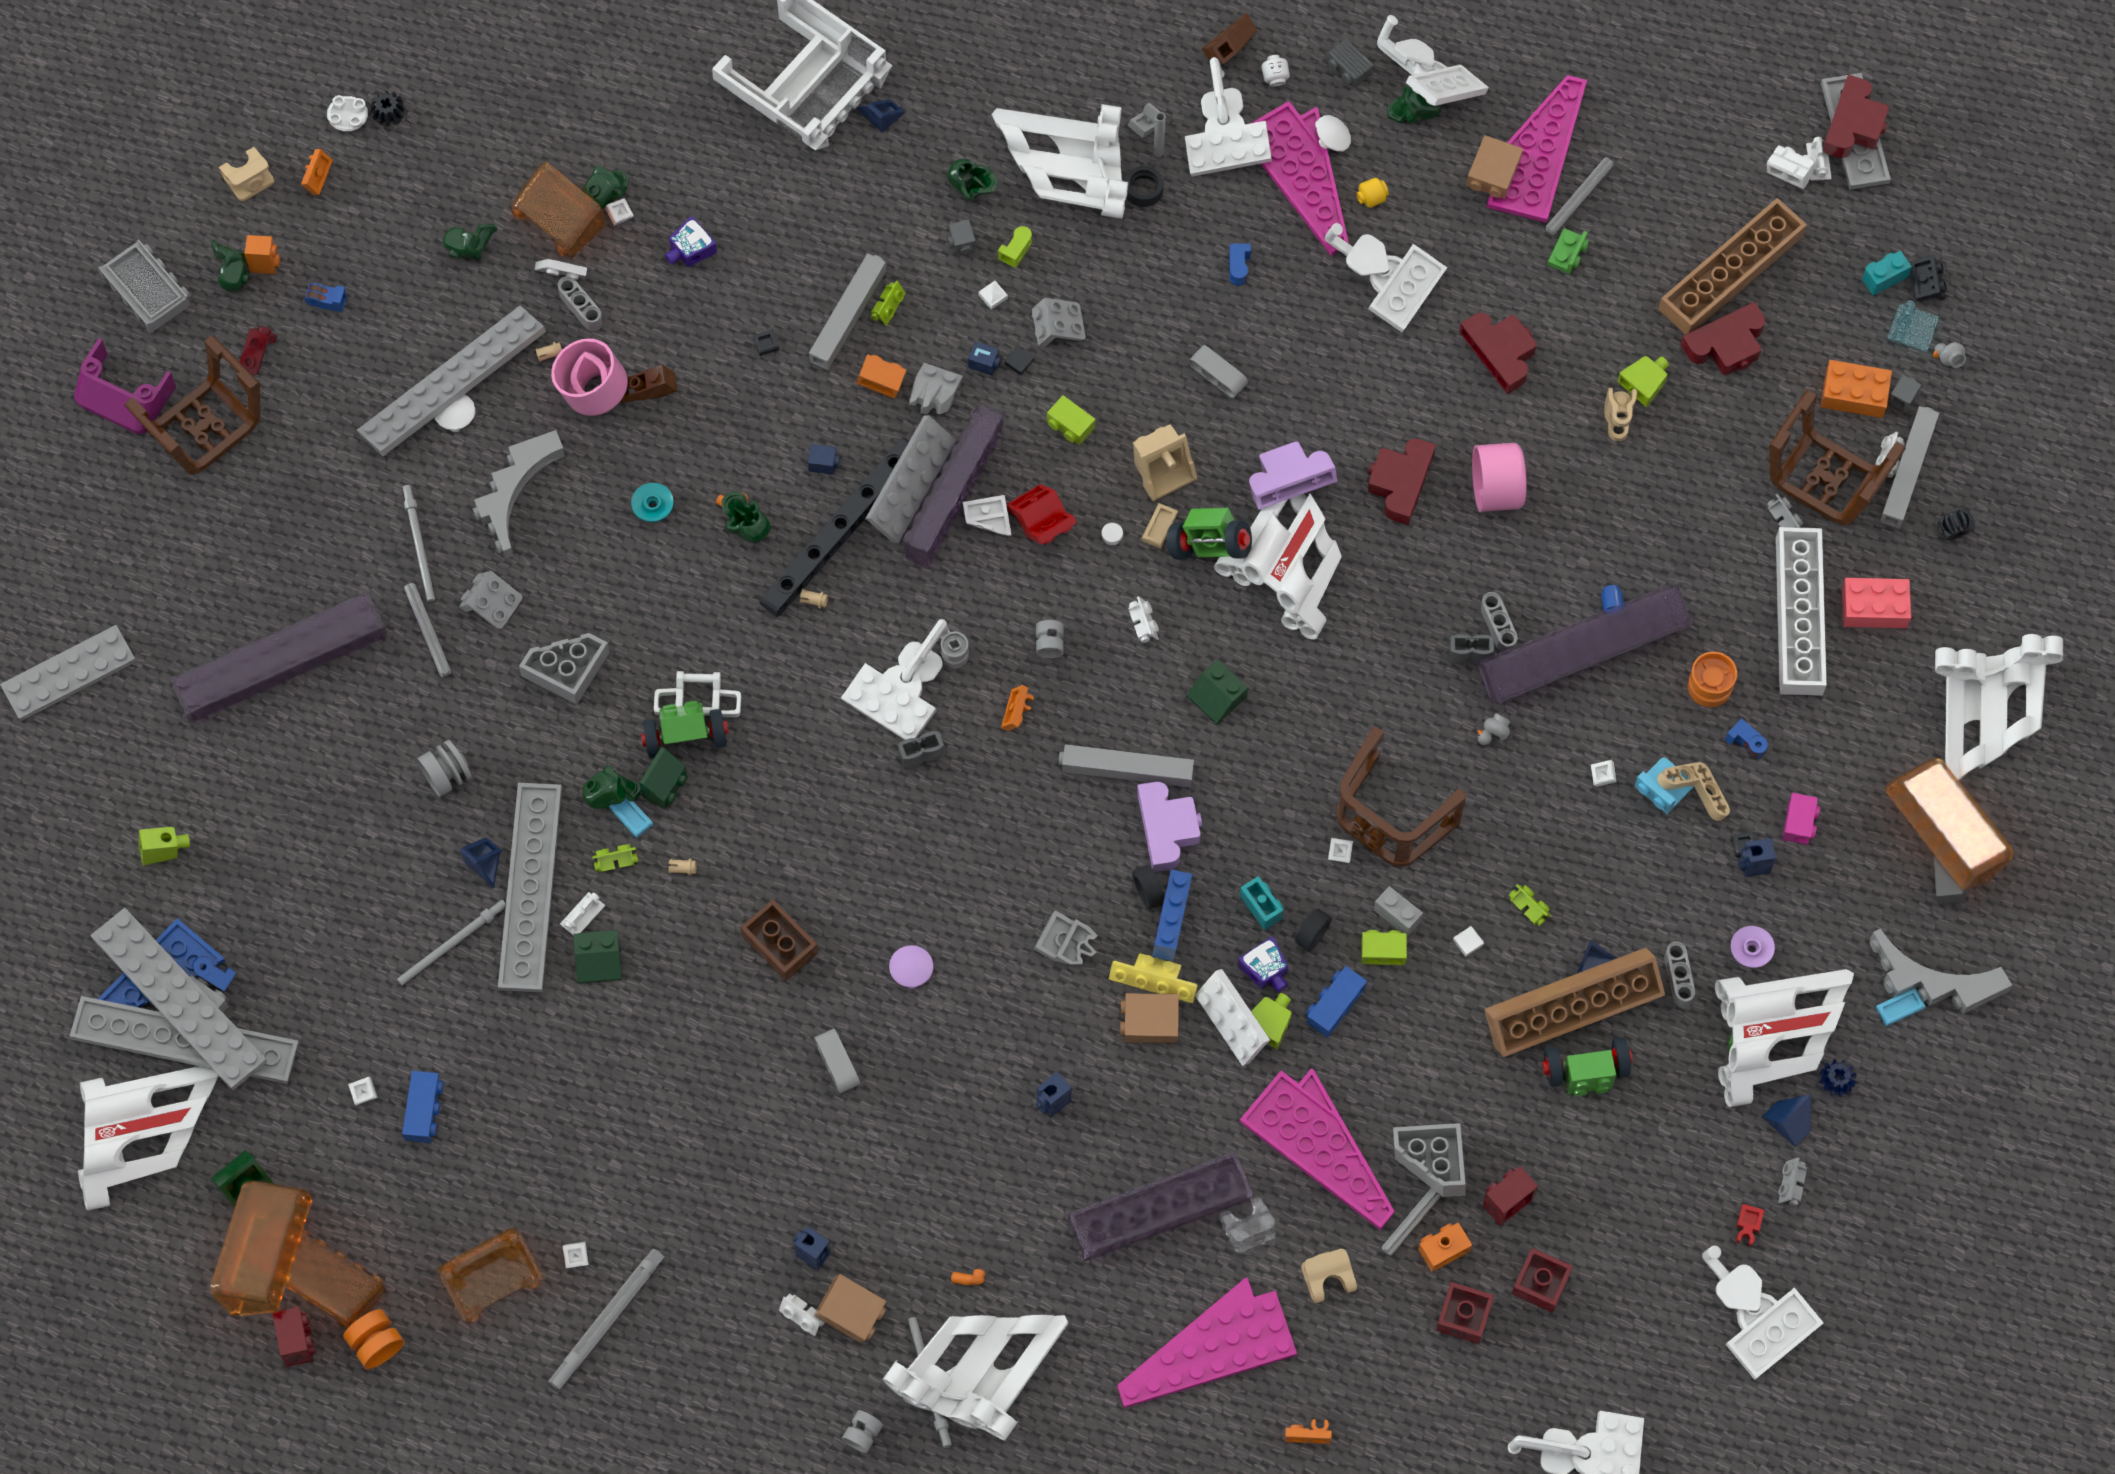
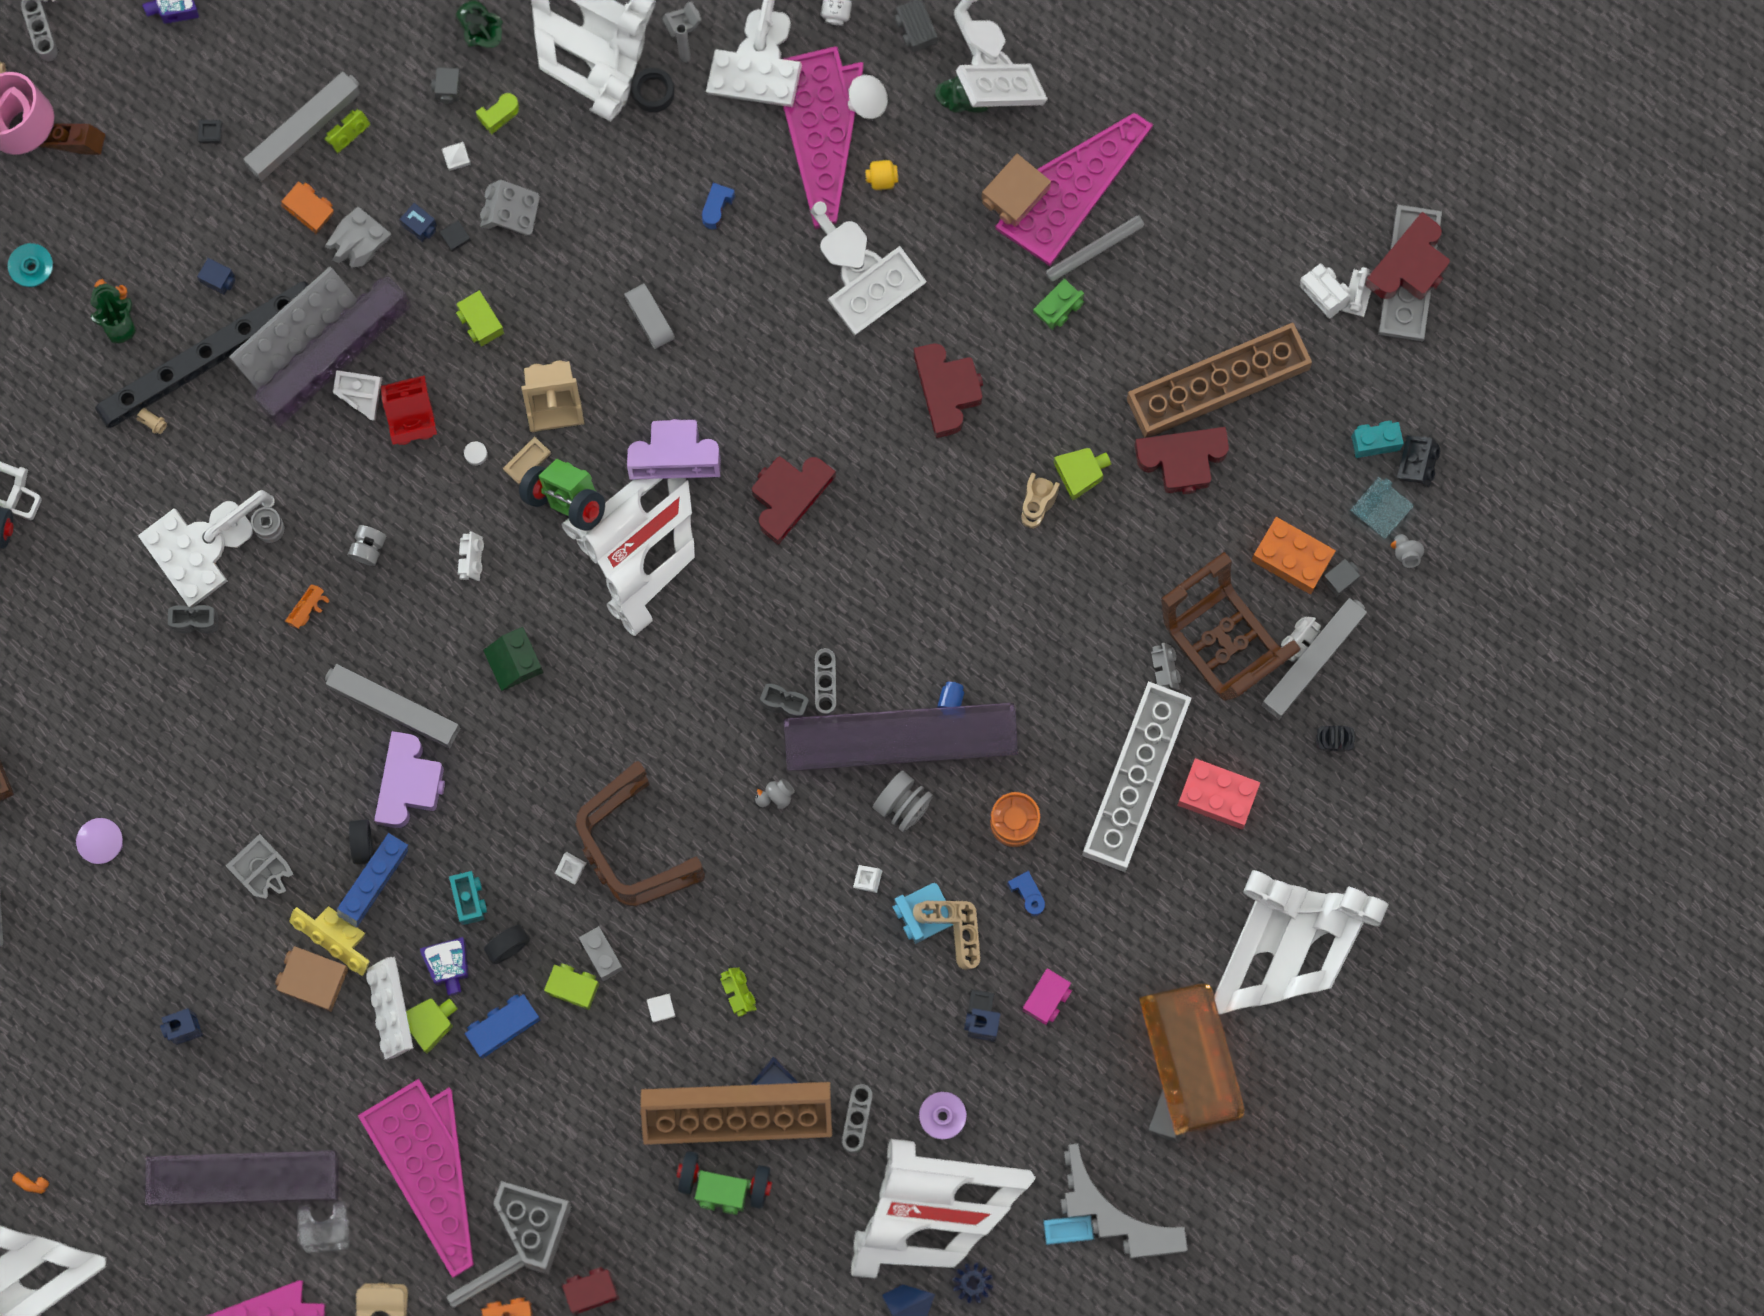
camera: 20 degrees right, 10 degrees up
(1499, 477) = (883, 530): bright pink piece -> none
(1609, 696) = (902, 801): none -> light grey wheel

